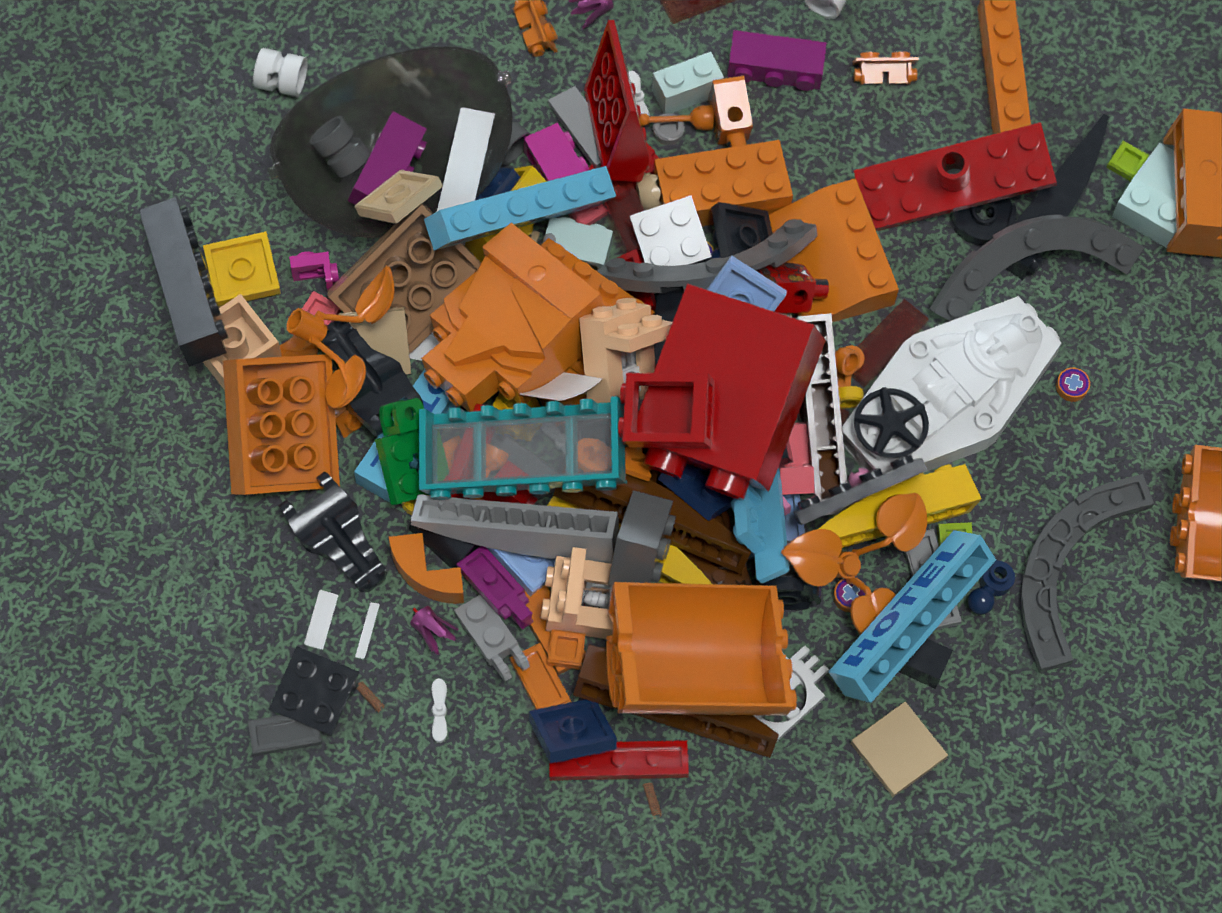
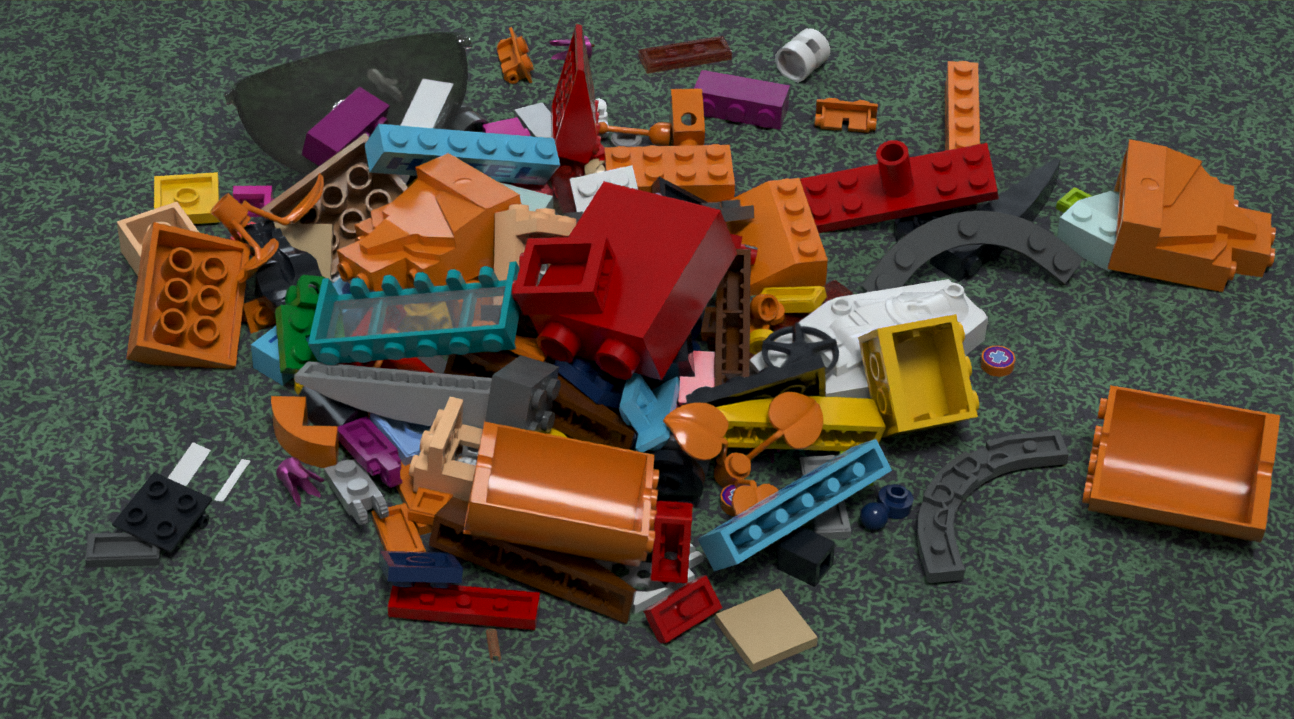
camera: 10 degrees right, 25 degrees down
(182, 281) = (126, 187): brick -> none
(280, 72) = (257, 58): white wheel -> none
(334, 531) = (221, 395): black animal -> none
(336, 142) = (301, 104): dark grey wheel -> none
(373, 695) = (217, 523): nougat leg -> none
(398, 196) = (344, 133): tan tile -> none
(439, 710) = (288, 548): white piece -> none
(564, 387) = (467, 274): white sticker -> none
(685, 83) = (645, 104): light aqua brick -> none
(809, 662) = (672, 534): none -> red torso
(821, 740) = (682, 609): none -> red plate
(868, 335) = (798, 299): none -> yellow tile
(1010, 444) = (919, 374): none -> yellow container

